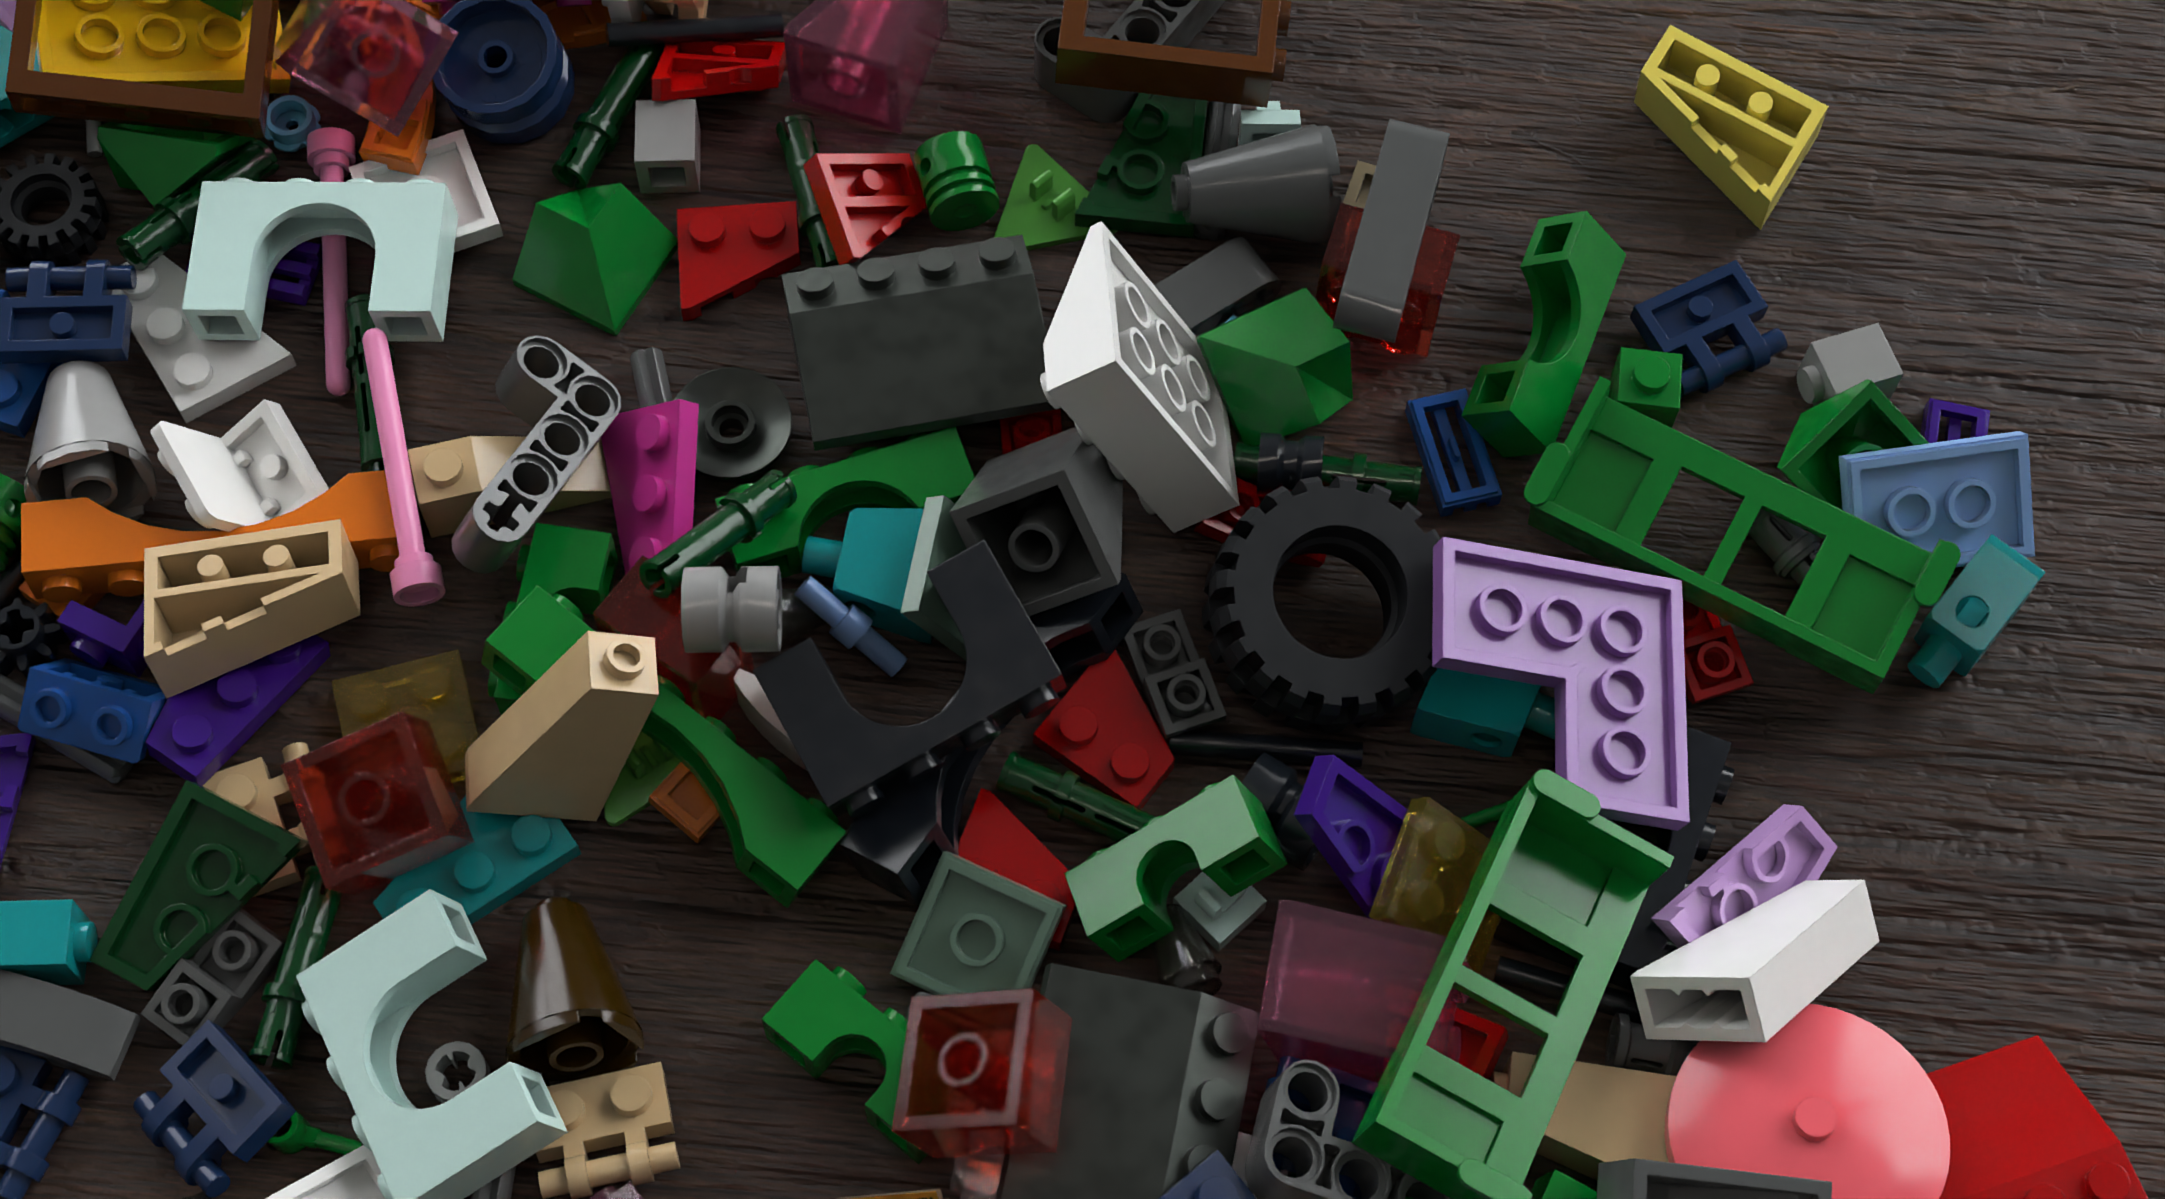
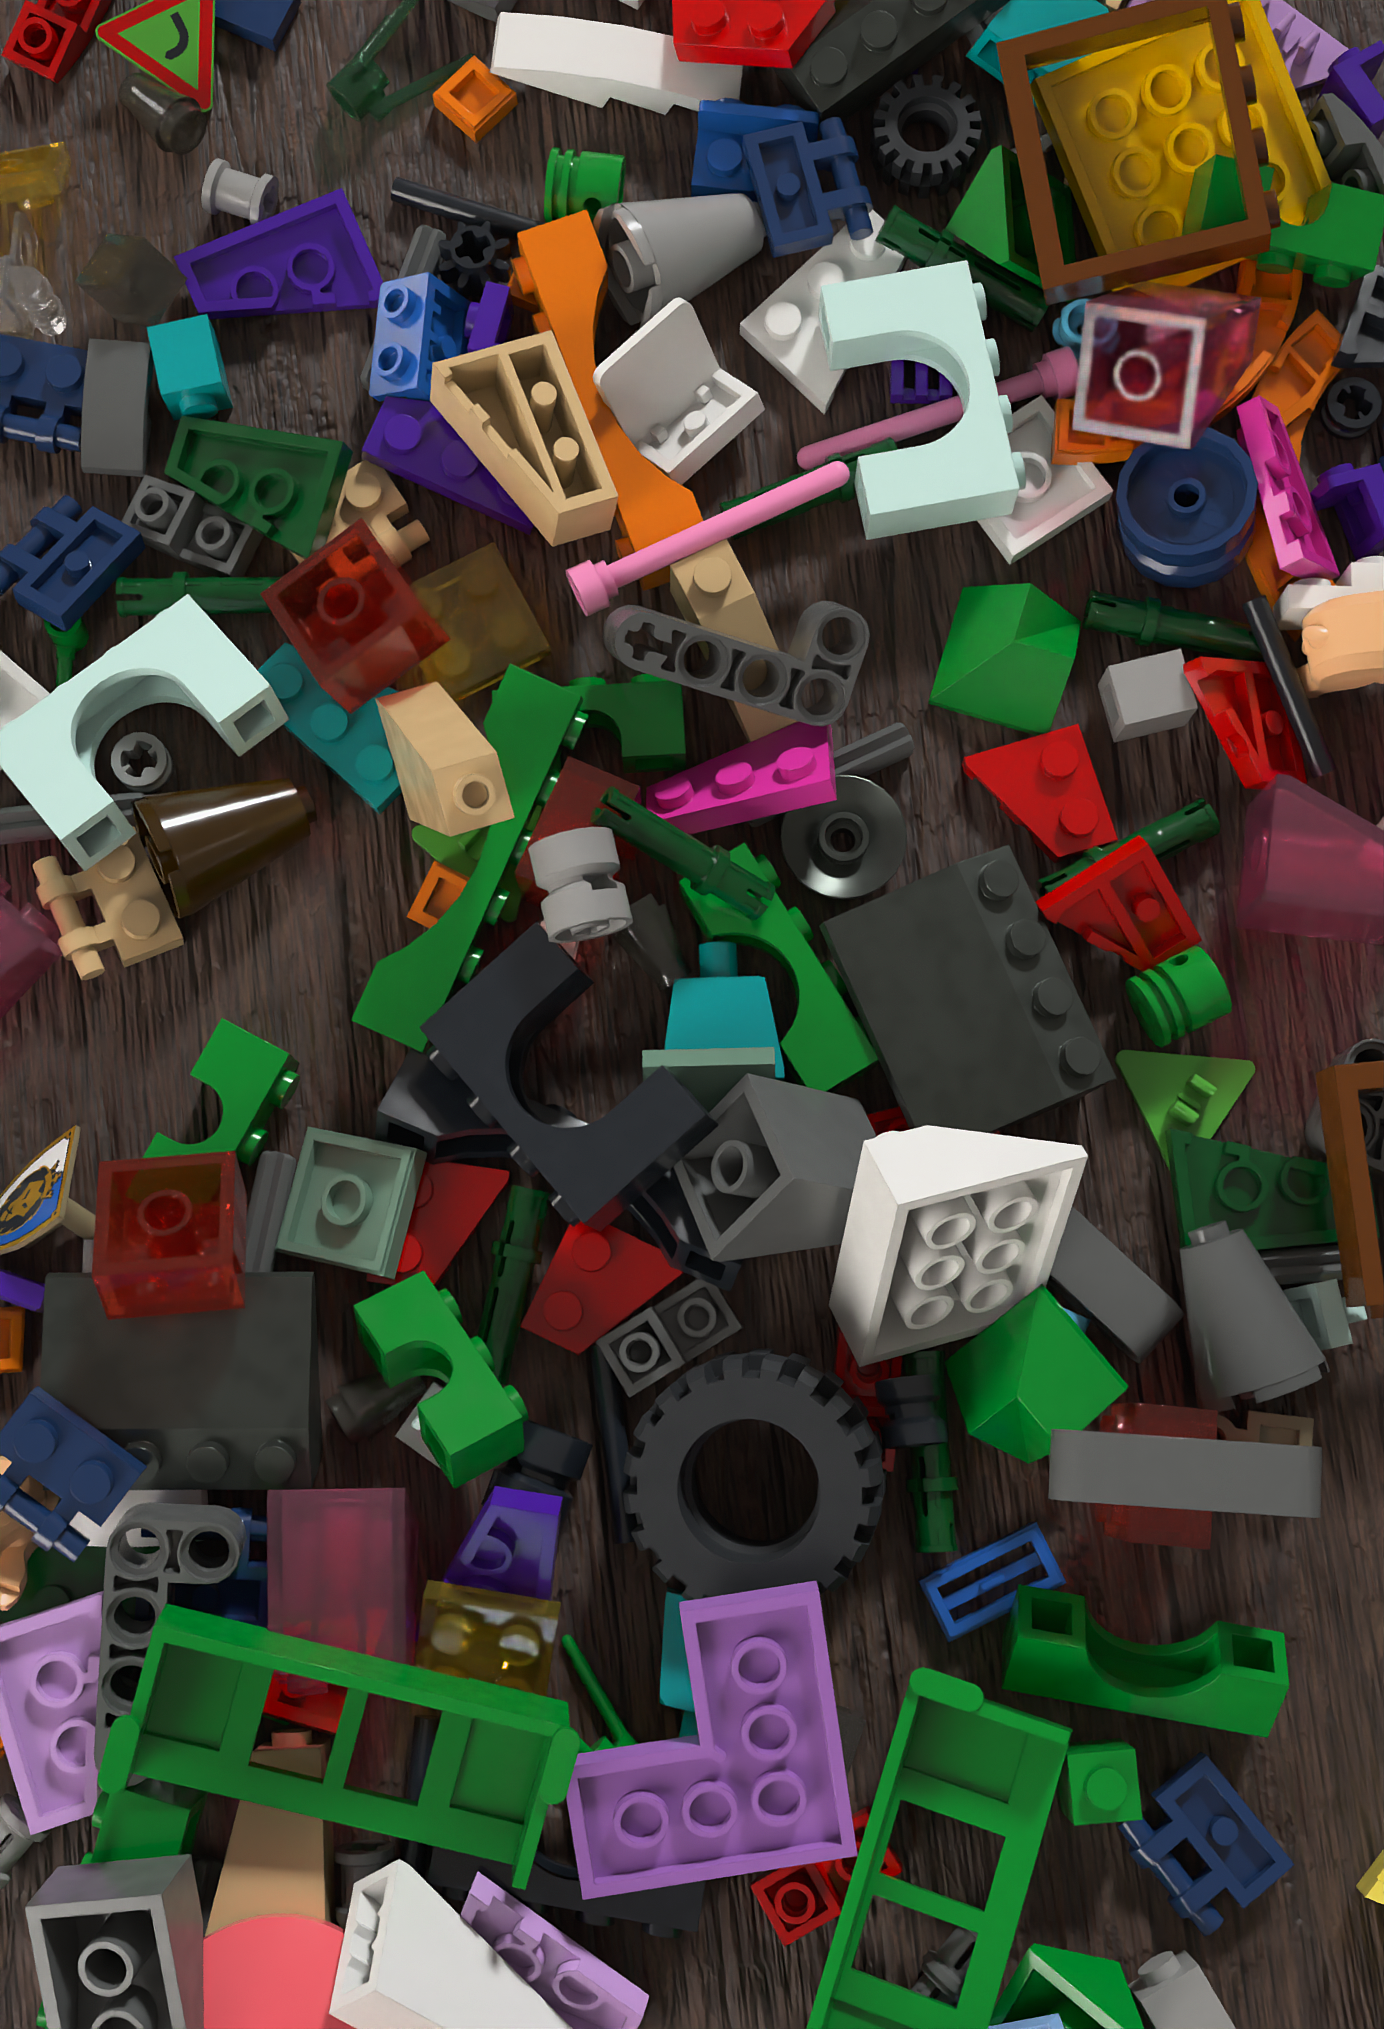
camera: 80 degrees right, 15 degrees up
(851, 626) = (647, 1006): medium blue bar -> none

